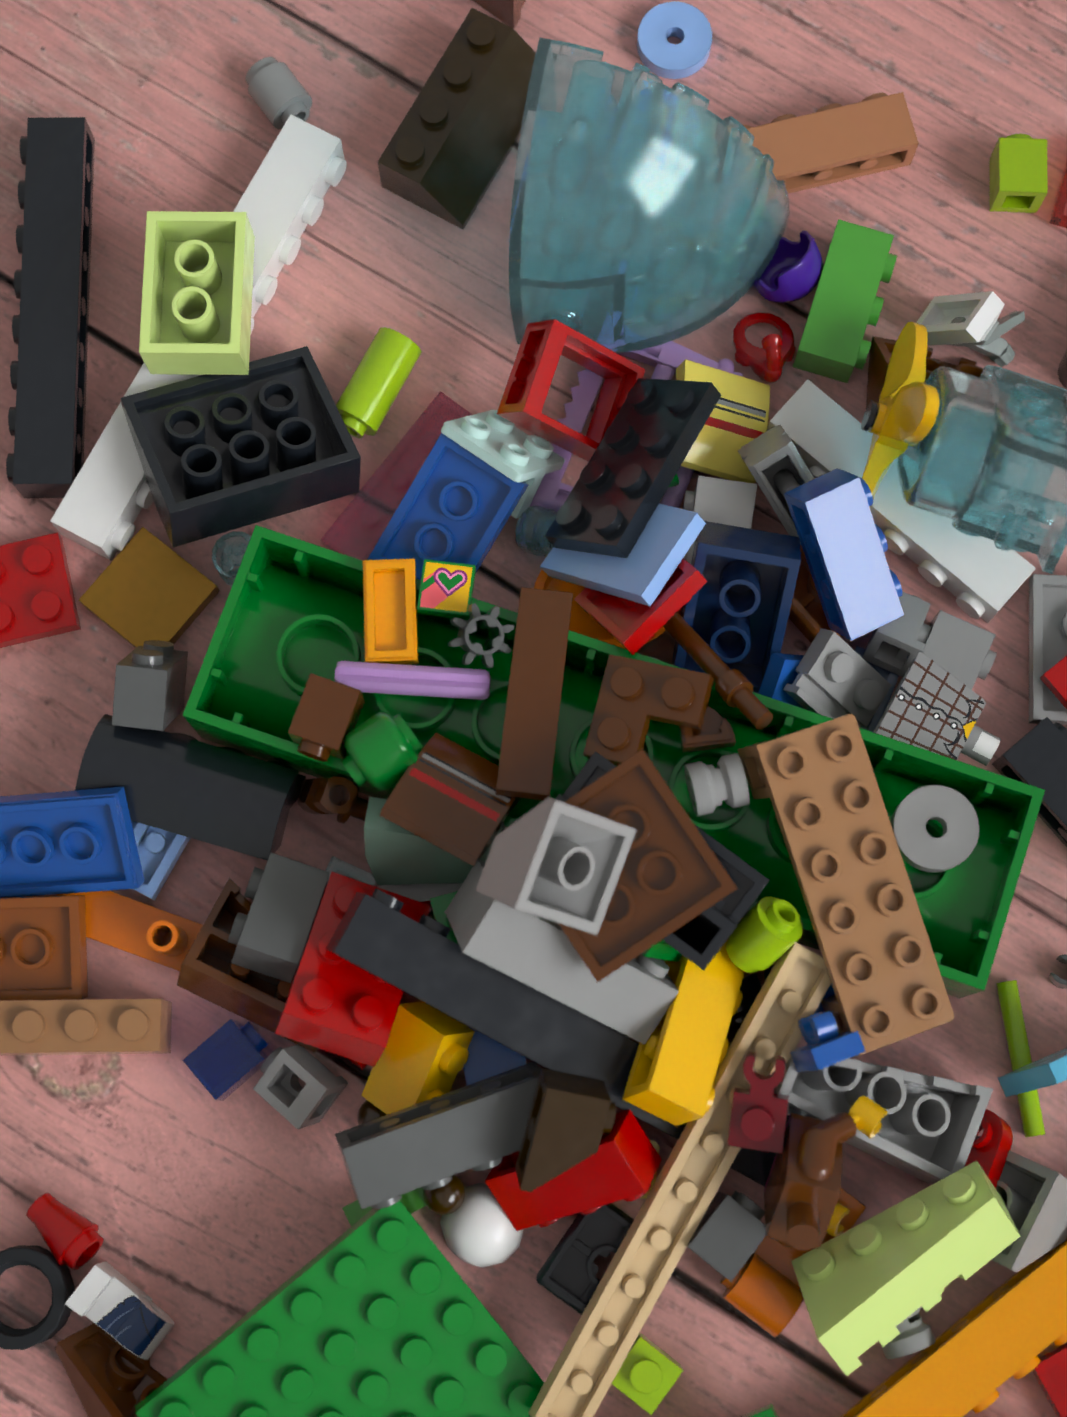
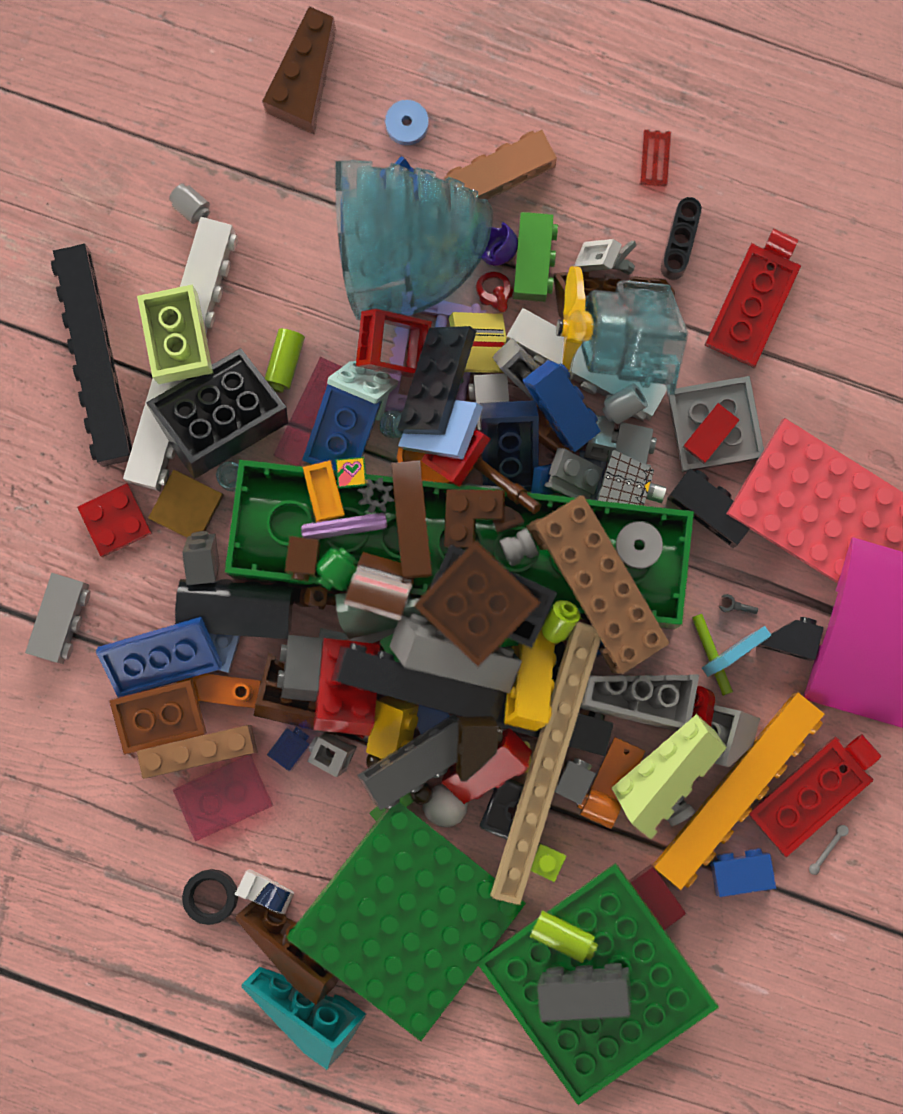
camera: 10 degrees left, 5 degrees up
(65, 1231) = (227, 859): red cone -> none
(88, 1121) = (223, 797): none -> clear pink tile
(461, 121) = (299, 197): dark brown slope -> none
(558, 864) = (444, 611): light grey slope -> none
(759, 1113) = (576, 715): dark red plate -> none
(808, 1174) = (608, 740): reddish brown torso -> none
(824, 1043) = (603, 671): blue tile -> none
(954, 579) = (624, 404): none -> light grey brick
(1018, 174) = (616, 161): lime brick -> none

